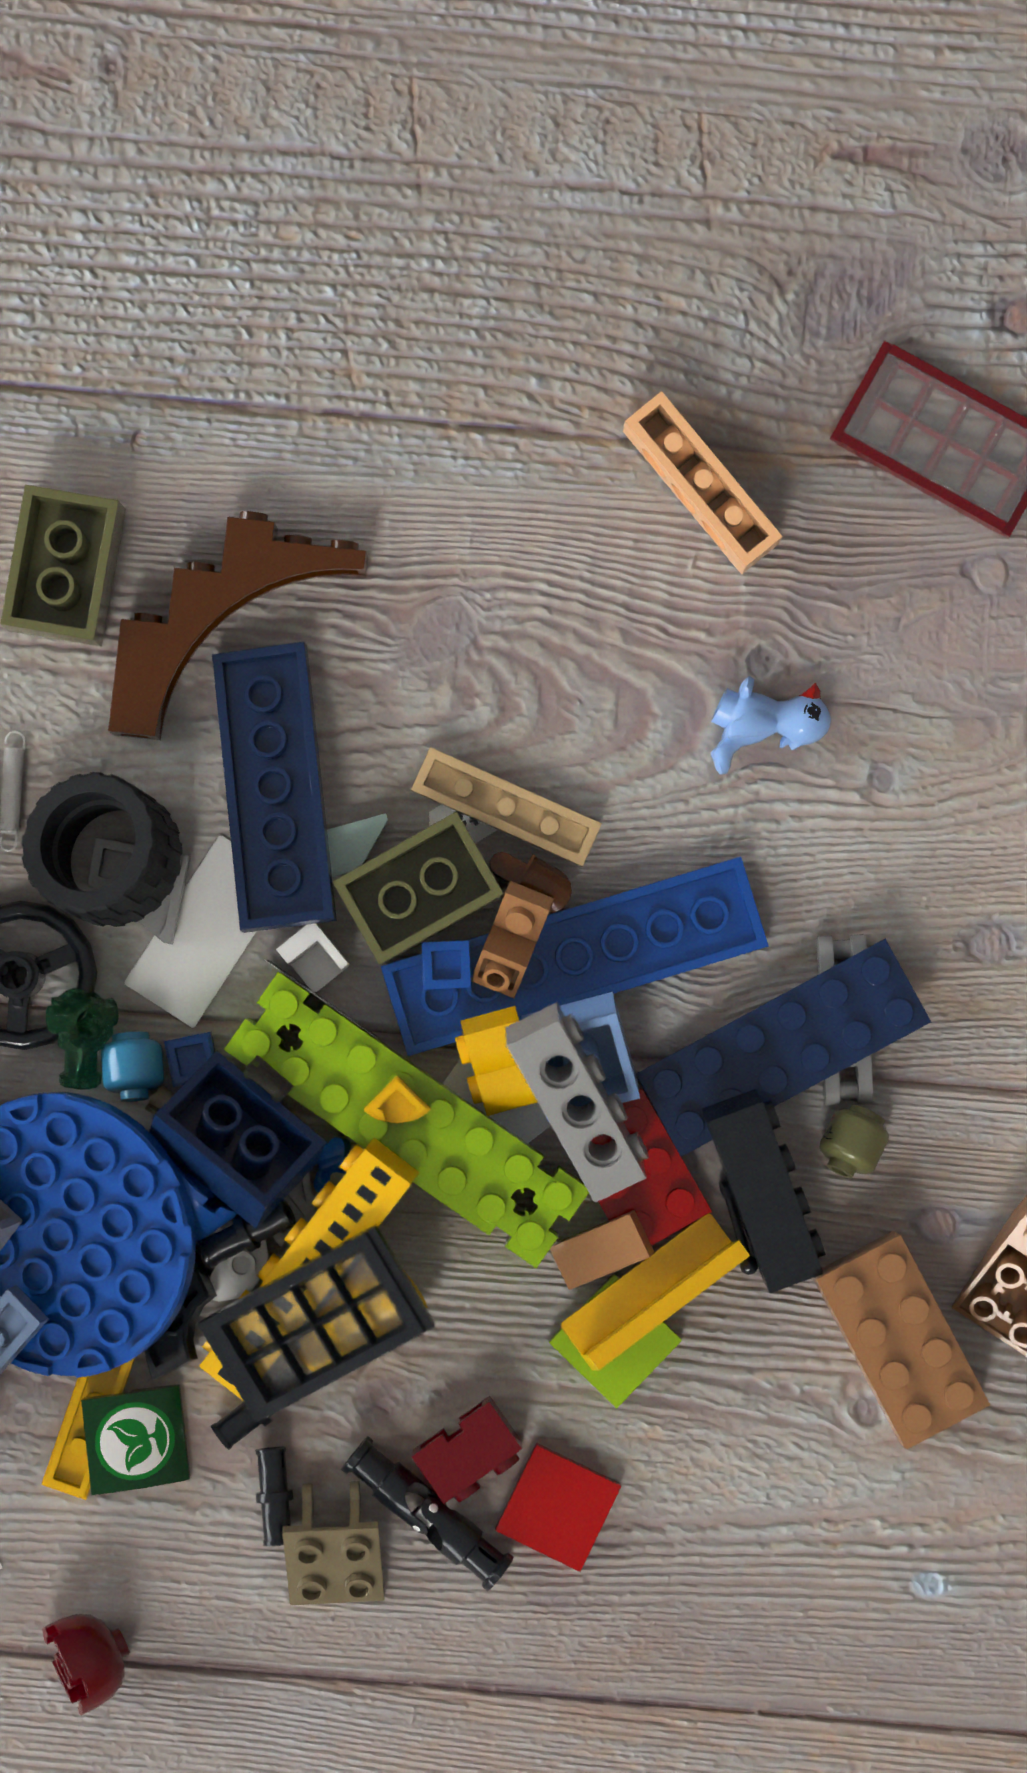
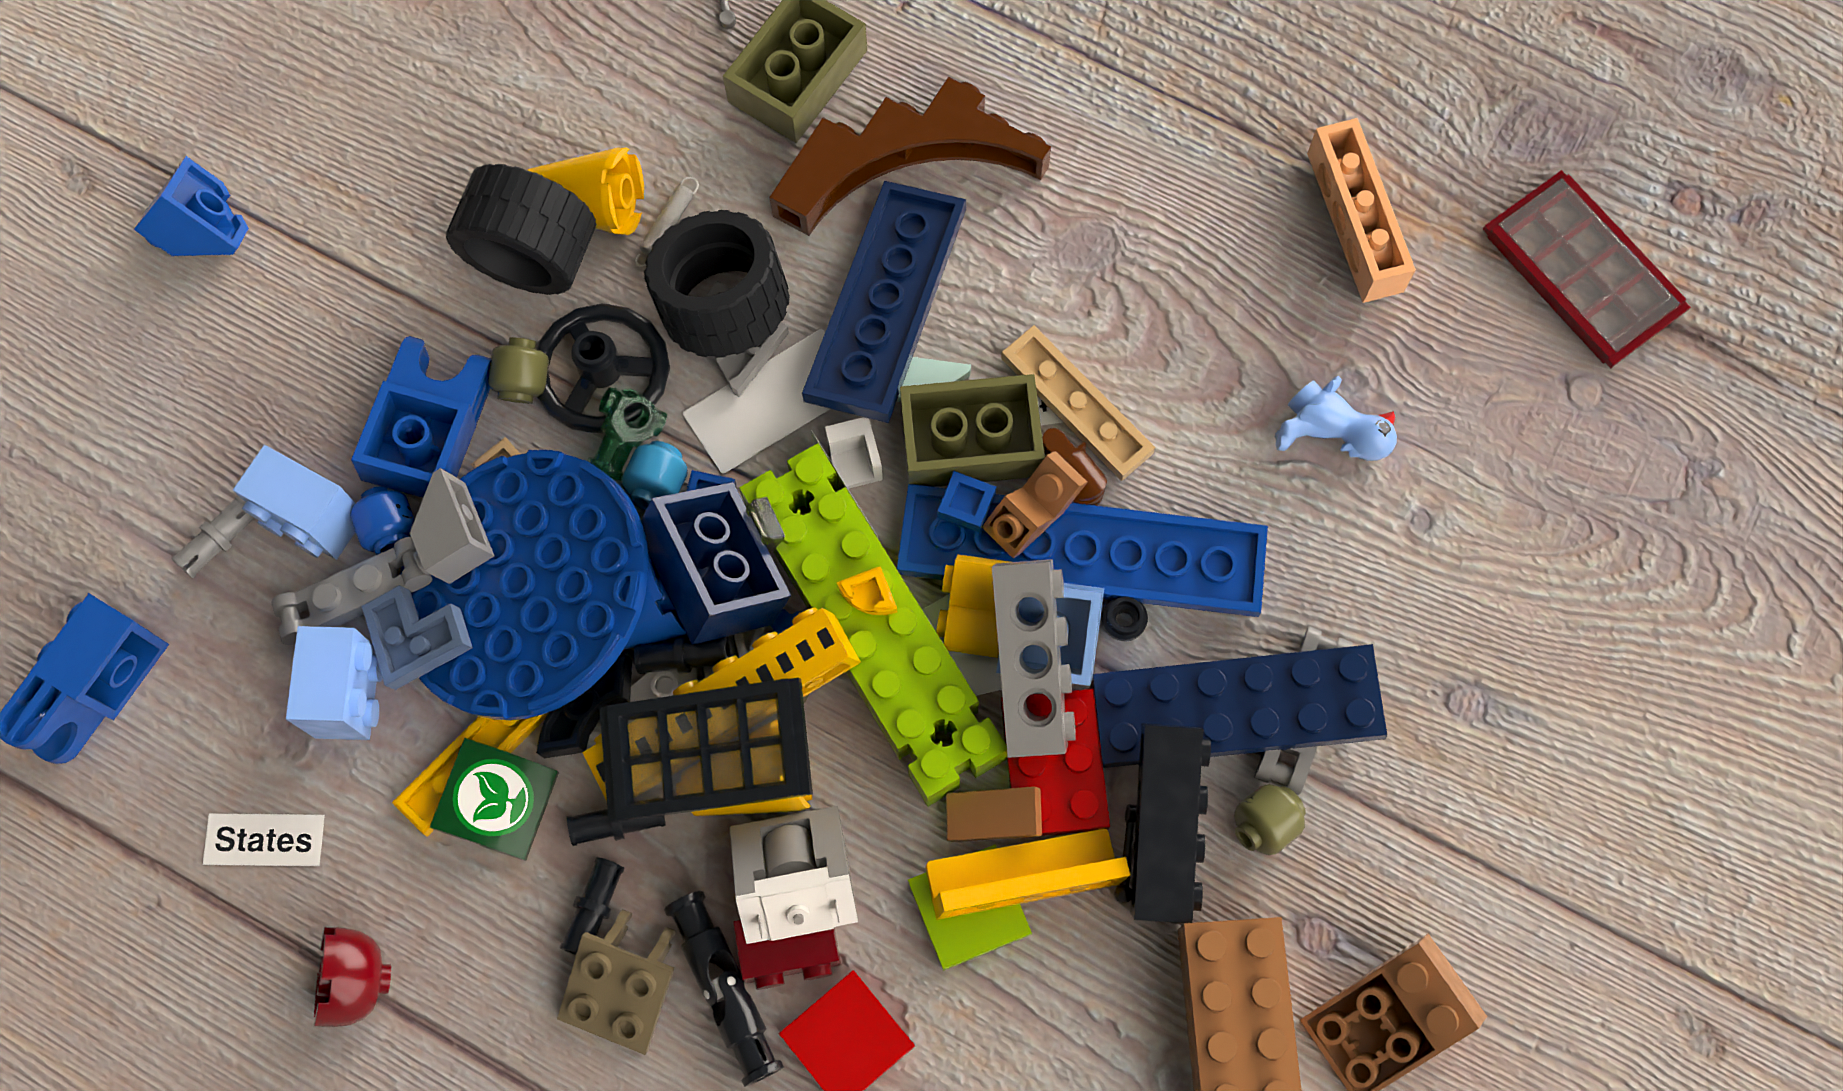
camera: 25 degrees right, 15 degrees down
(446, 1393) = (792, 875): none -> piece
(653, 1016) = (1131, 607): none -> black plate

